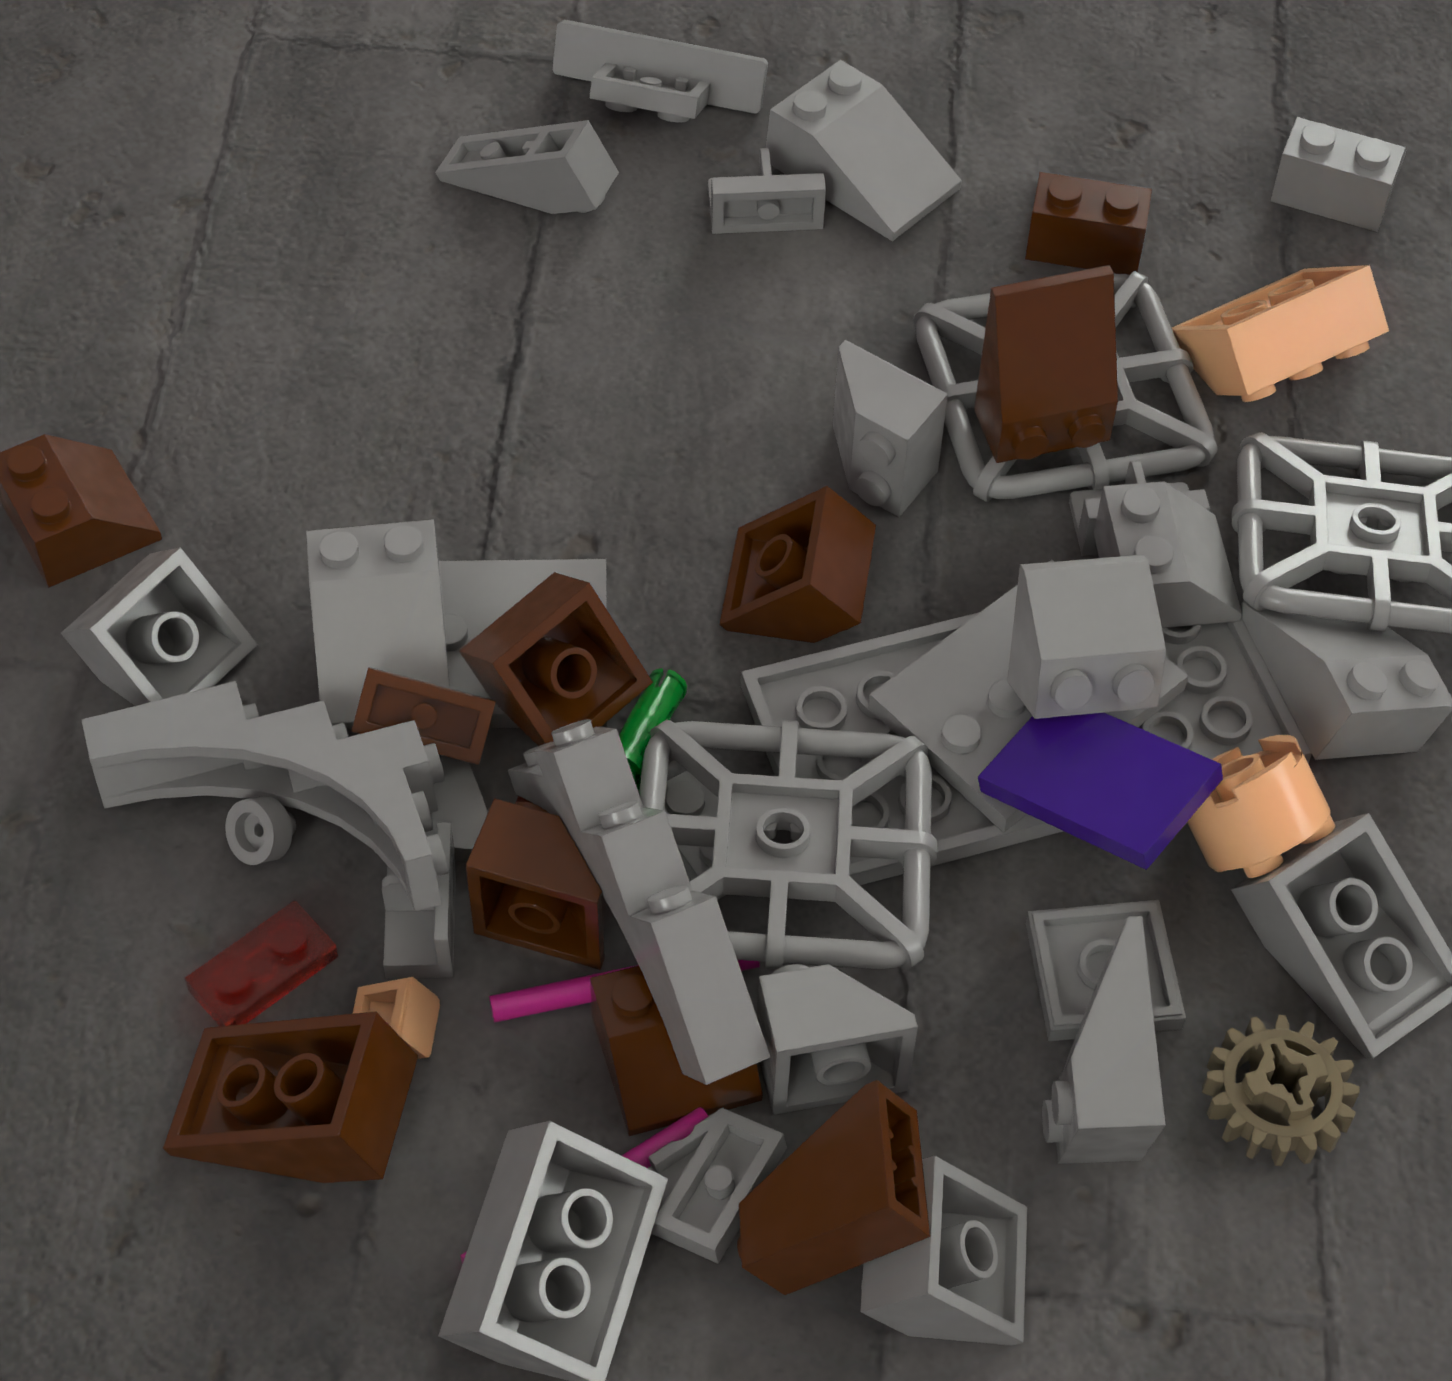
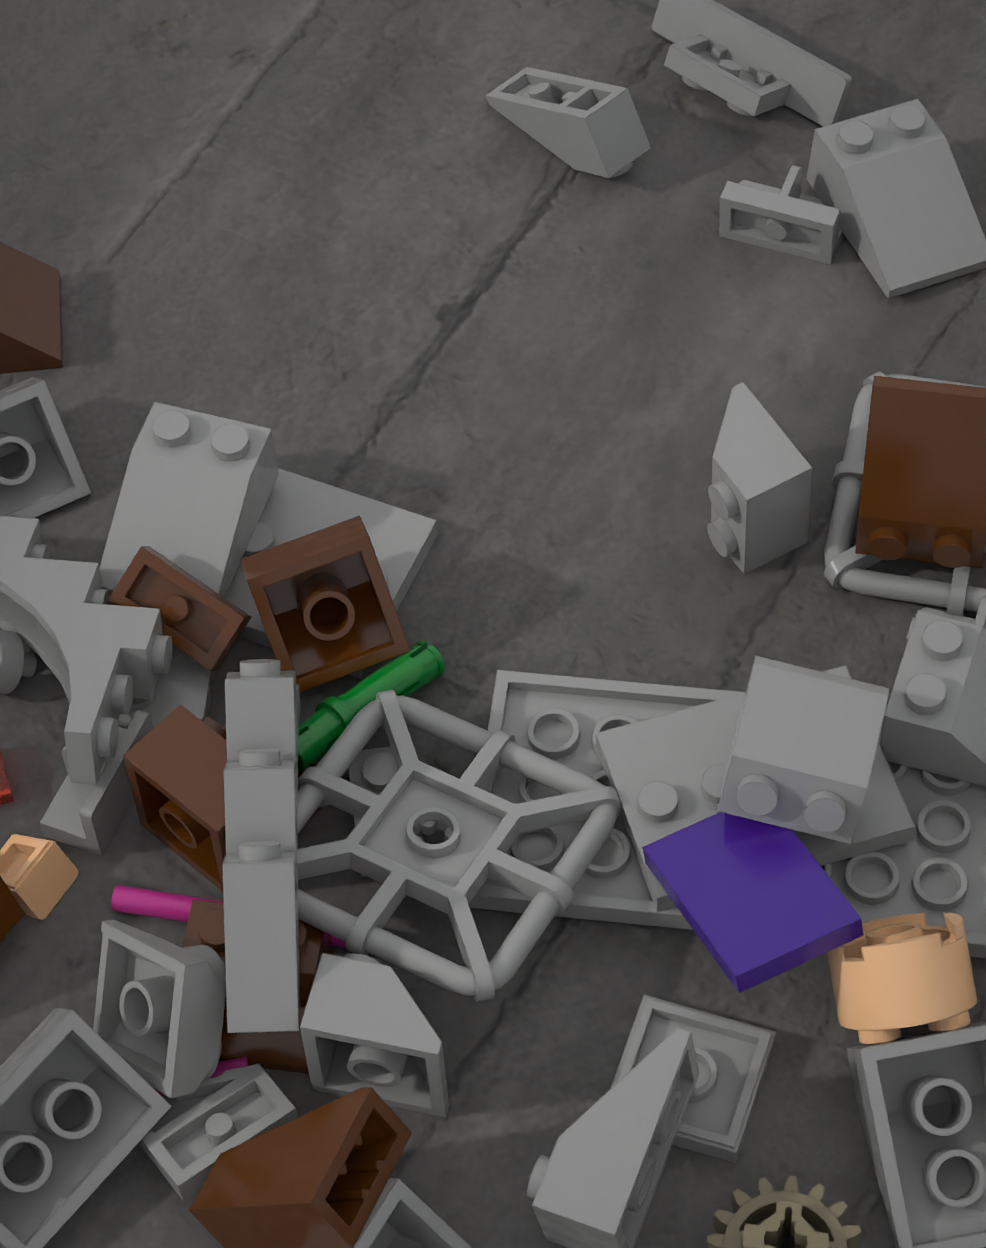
camera: 30 degrees right, 0 degrees up
(613, 1085) = (160, 1007): none -> light grey slope
(800, 570) = (610, 594): reddish brown slope -> none

